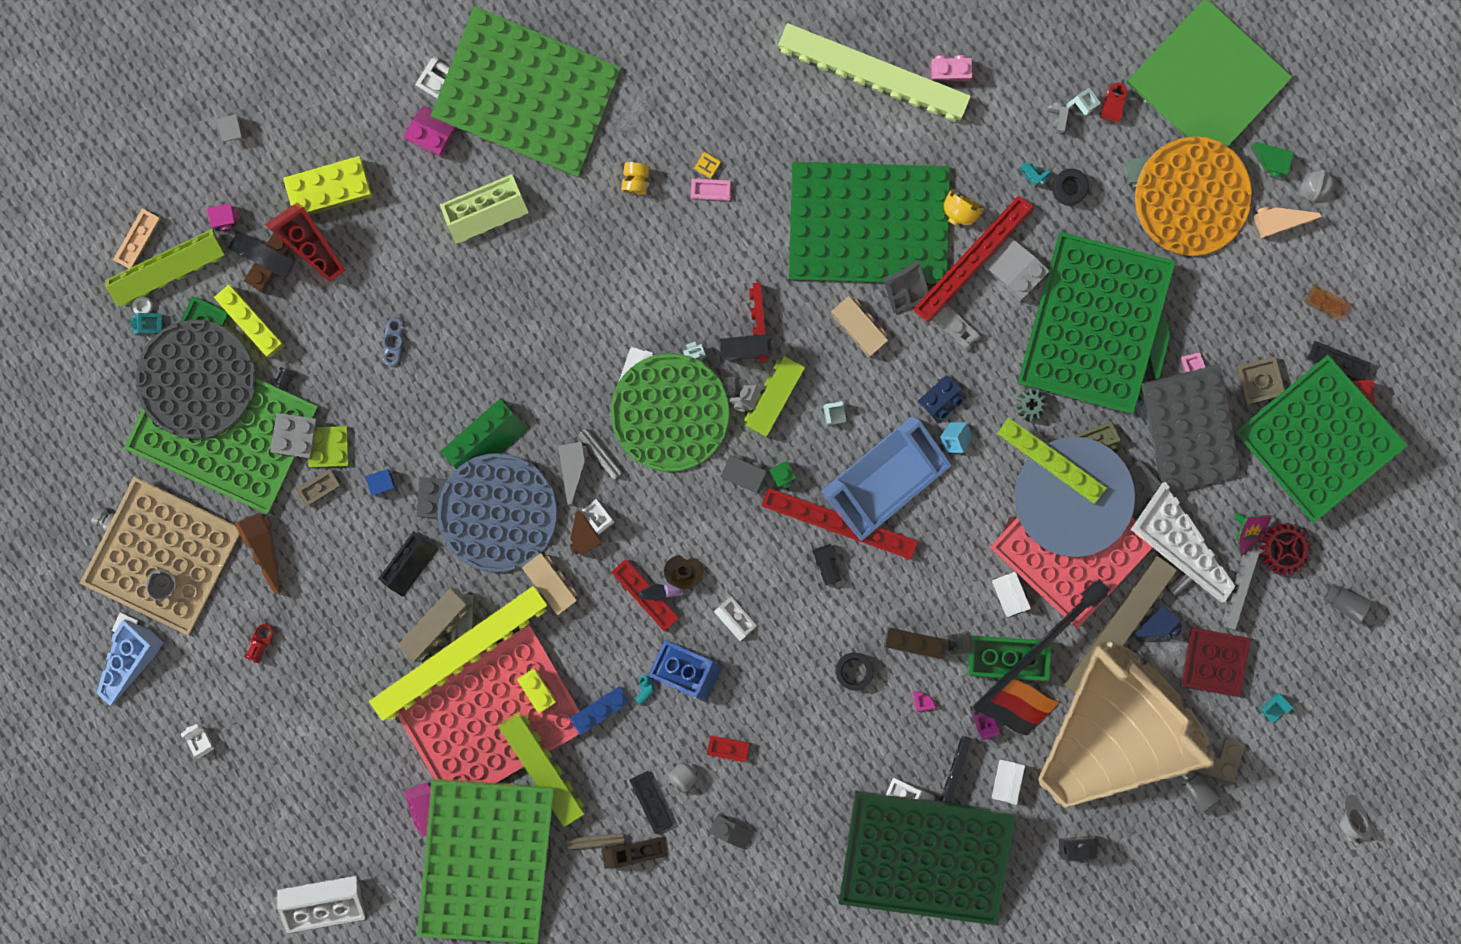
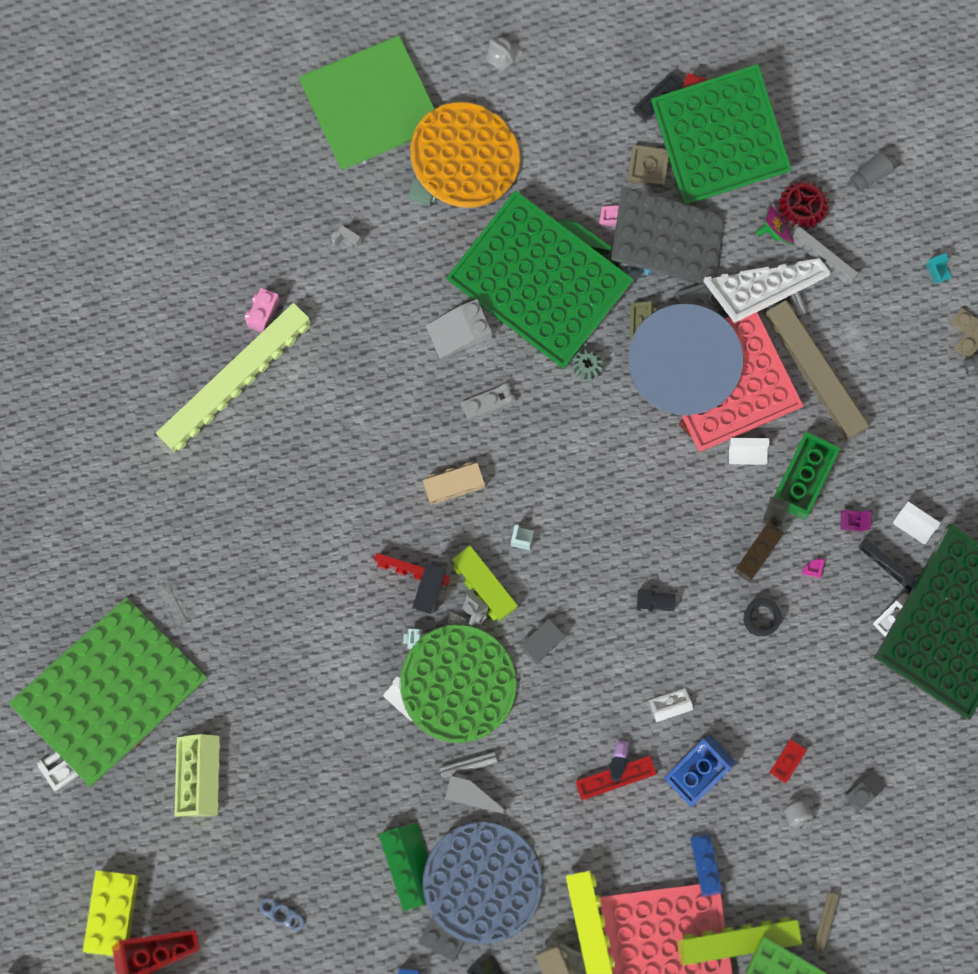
camera: 65 degrees left, 10 degrees down
(429, 133) = (104, 796): dark pink slope -> none
(536, 690) = (664, 914): neon yellow brick -> none
(550, 583) = (569, 860): tan brick -> none
(583, 535) = (537, 811): reddish brown slope -> none
(597, 517) = (525, 791): white slope -> none
(634, 852) = (851, 889): dark brown slope -> none
(635, 178) = (230, 624): yellow wheel -> none
(646, 689) = (702, 813): teal arm -> none
(650, 802) = (809, 854): black tile -> none
(678, 565) = (607, 726): dark brown dish -> none
(707, 165) = (249, 557): yellow tile -> none
(711, 189) = (272, 563): bright pink tile -> none
(782, 475) = (558, 606): green brick -> none
(833, 522) = (622, 575): red plate -> none
(867, 221) = (365, 438): green plate -> none
(886, 478) = (599, 515): medium blue slope -> none
(906, 287) = (438, 427): dark grey plate -> none
(942, 399) = (549, 438): dark blue bracket -> none
(956, 437) = (589, 440): medium azure panel -> none
(961, 209) = (389, 352): yellow cylinder -> none
(973, 259) = (438, 361): red plate -> none
(1018, 703) = (848, 484): flag -> none
(1031, 173) = (384, 281): teal bracket -> none
(1051, 460) = (645, 365): lime plate -> none
(1079, 178) = (411, 265): black tyre -> none
(1085, 101) = (342, 209): light aqua panel -> none
(1114, 105) = (356, 189): red piece -> none
(1122, 731) = (914, 404): tan cone -> none
(1160, 627) = (830, 335): dark blue slope -> none
(1215, 661) = (878, 302): dark red plate -> none
(1273, 159) = (462, 78): green slope -> none
(1280, 219) = (516, 94): light nougat slope -> none
(1326, 302) = (603, 86): clear orange plate -> none

